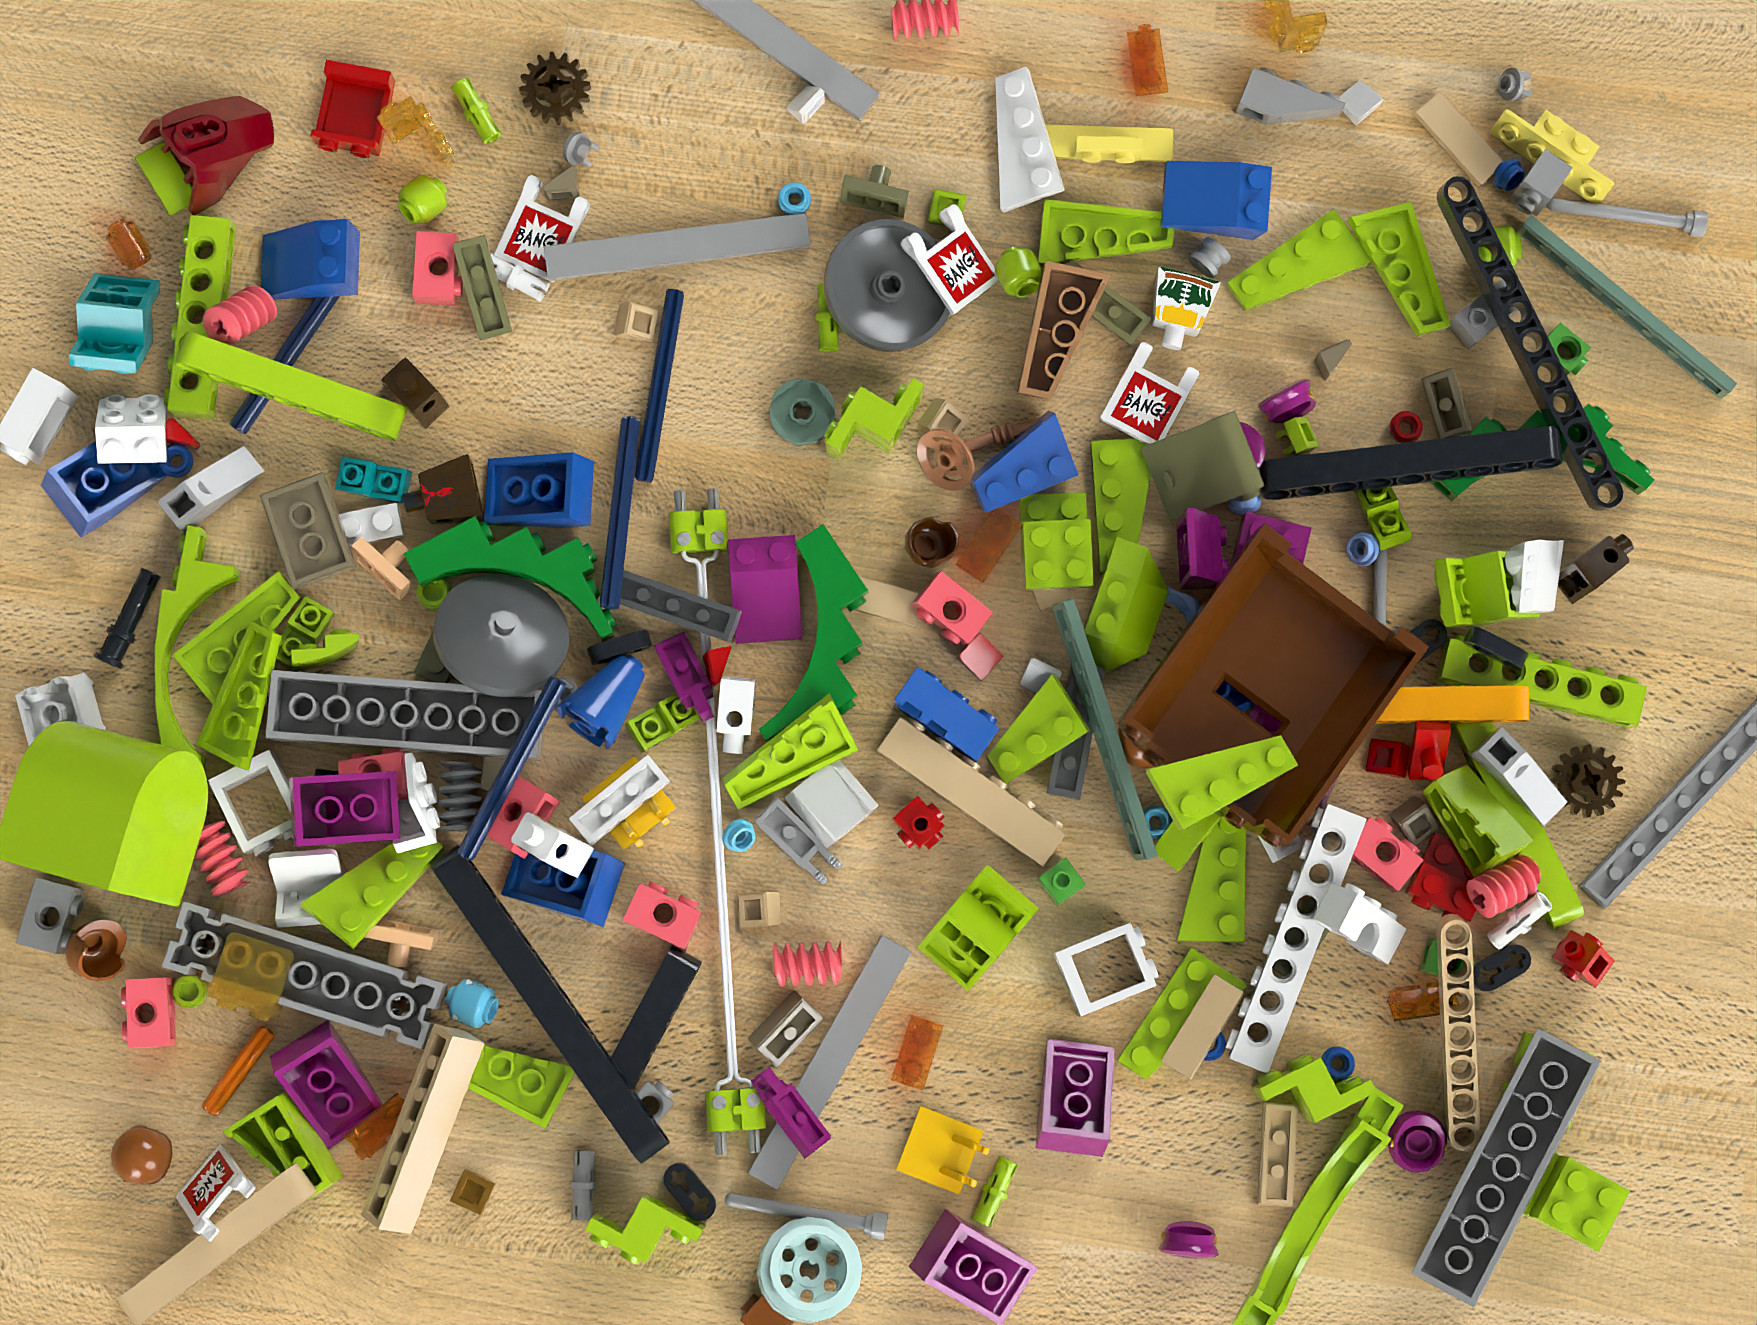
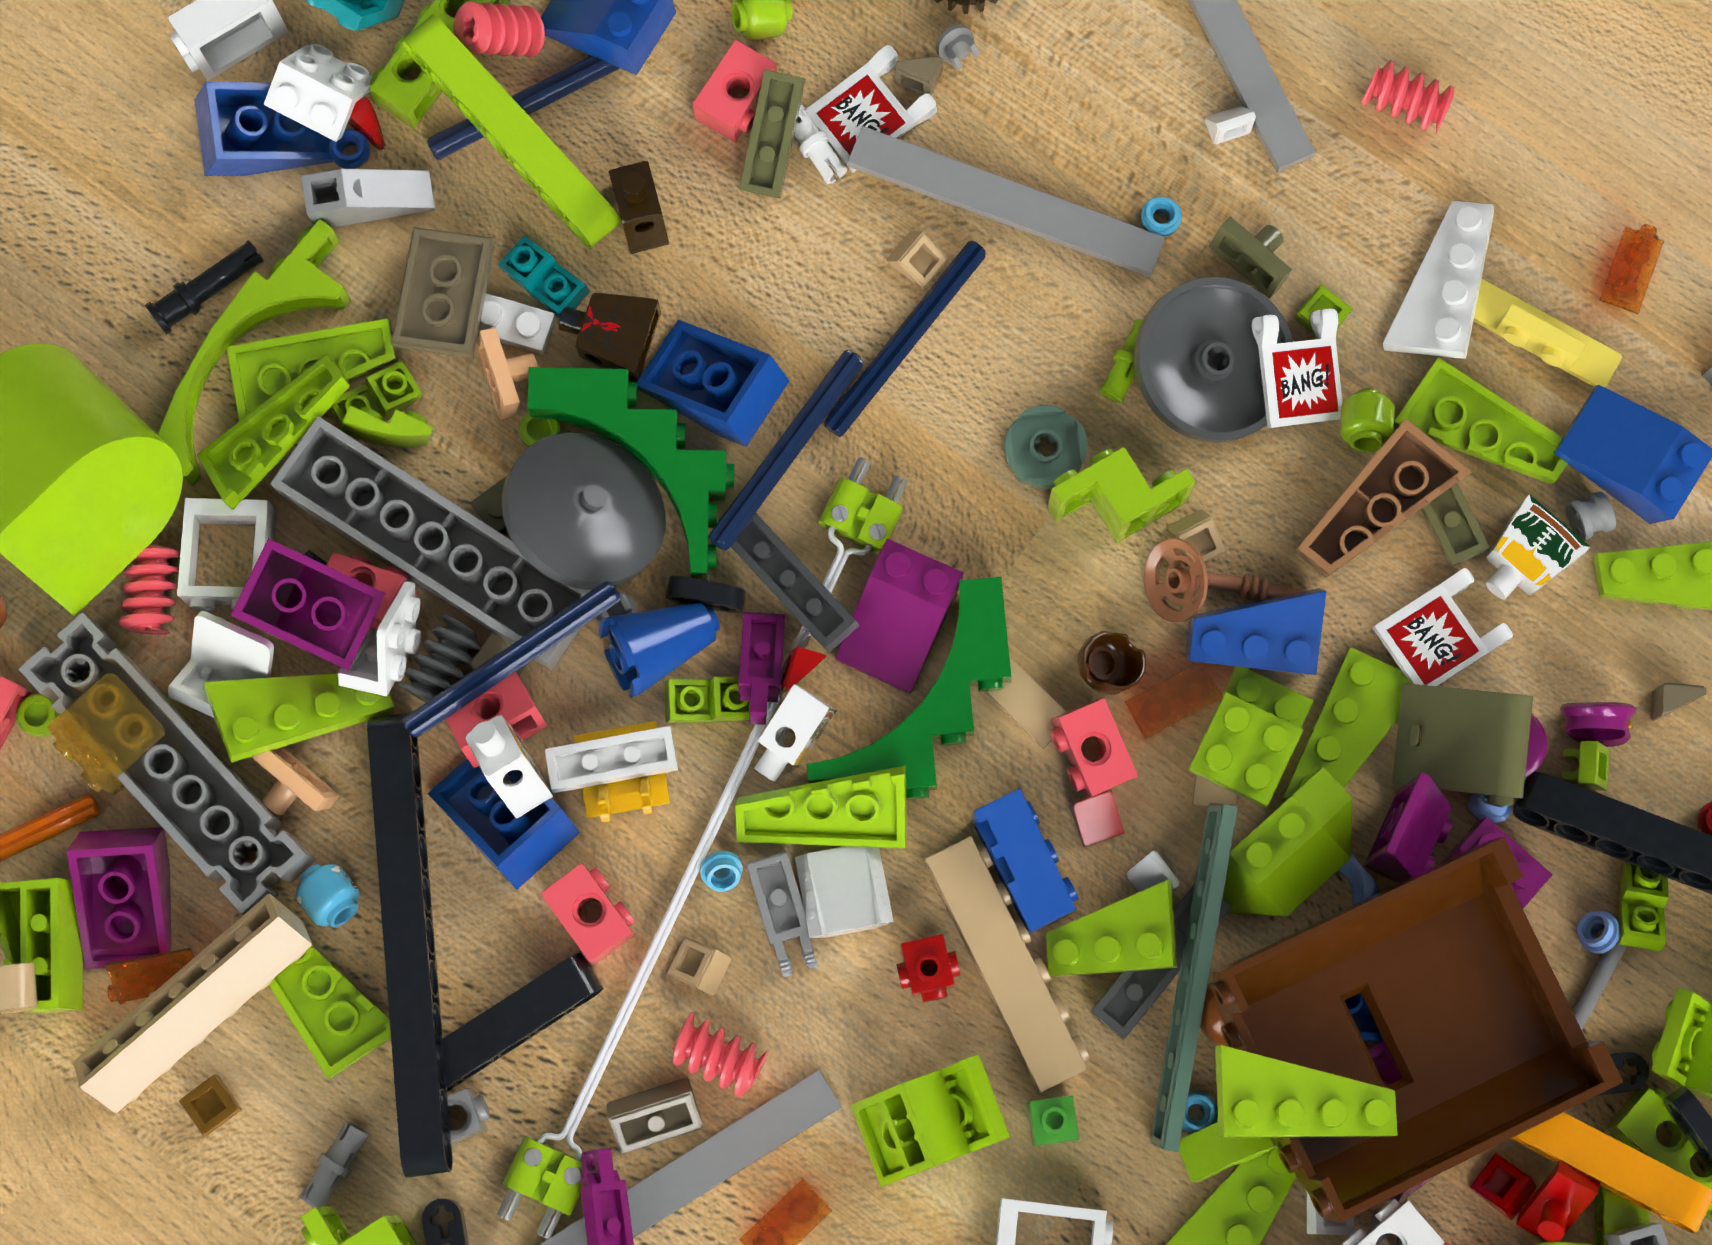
camera: 35 degrees right, 5 degrees down
(59, 700) = (86, 332): white slope -> none

